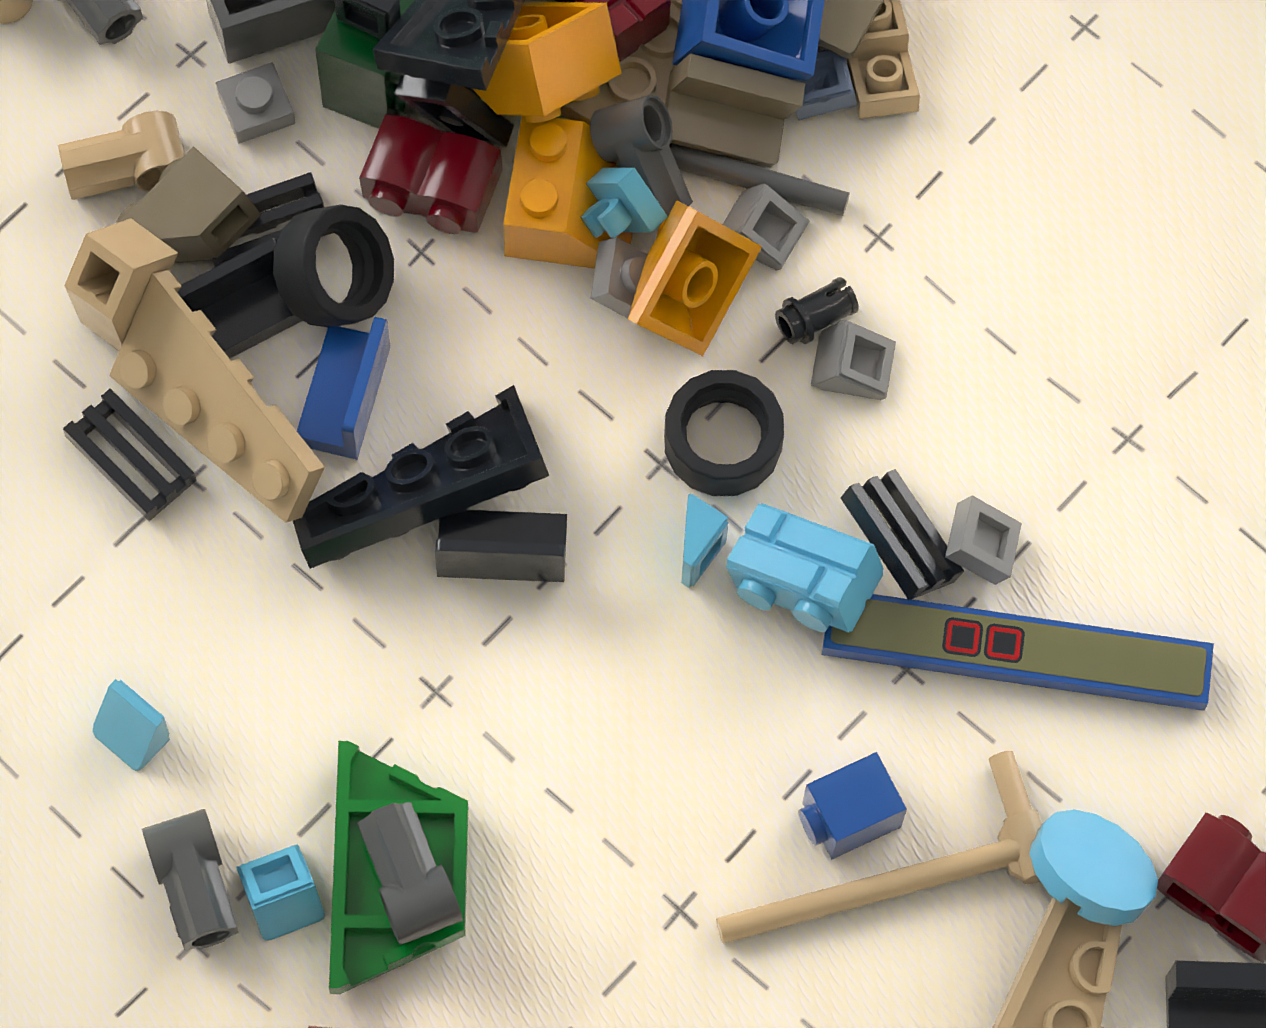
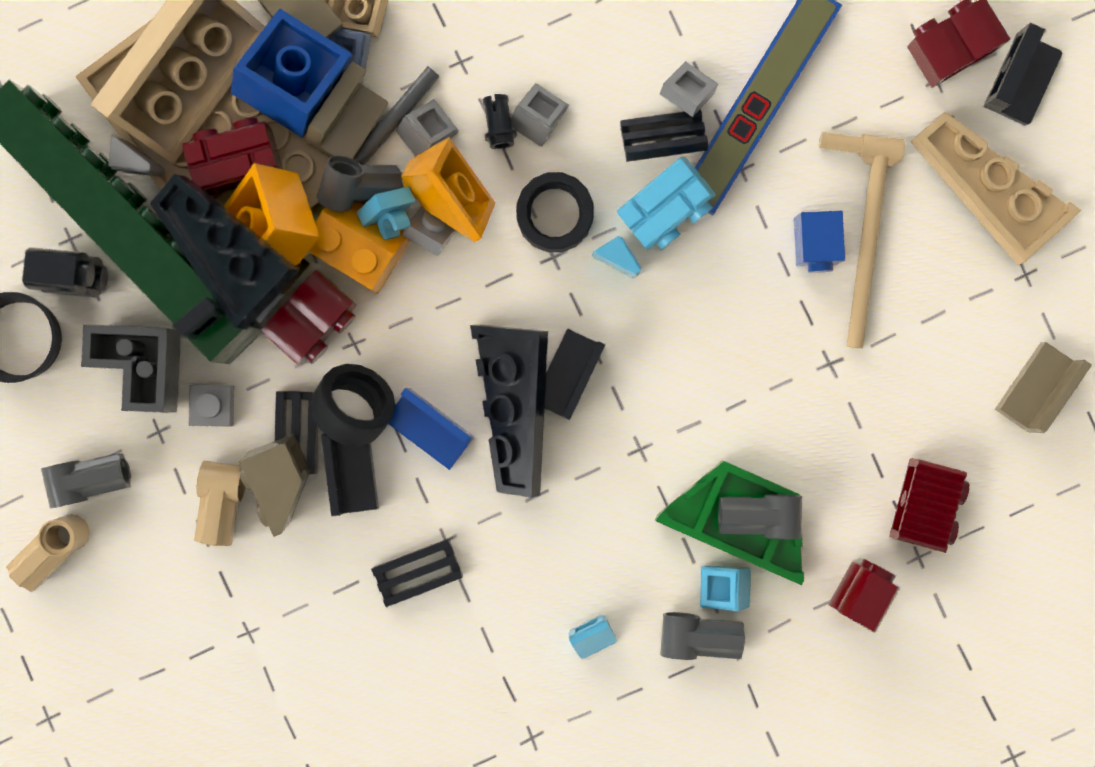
camera: 60 degrees left, 20 degrees up
(113, 275) = (310, 540): tan slope -> none
(211, 401) = (398, 521): tan wing -> none
(1094, 867) = (917, 118): medium azure tile -> none

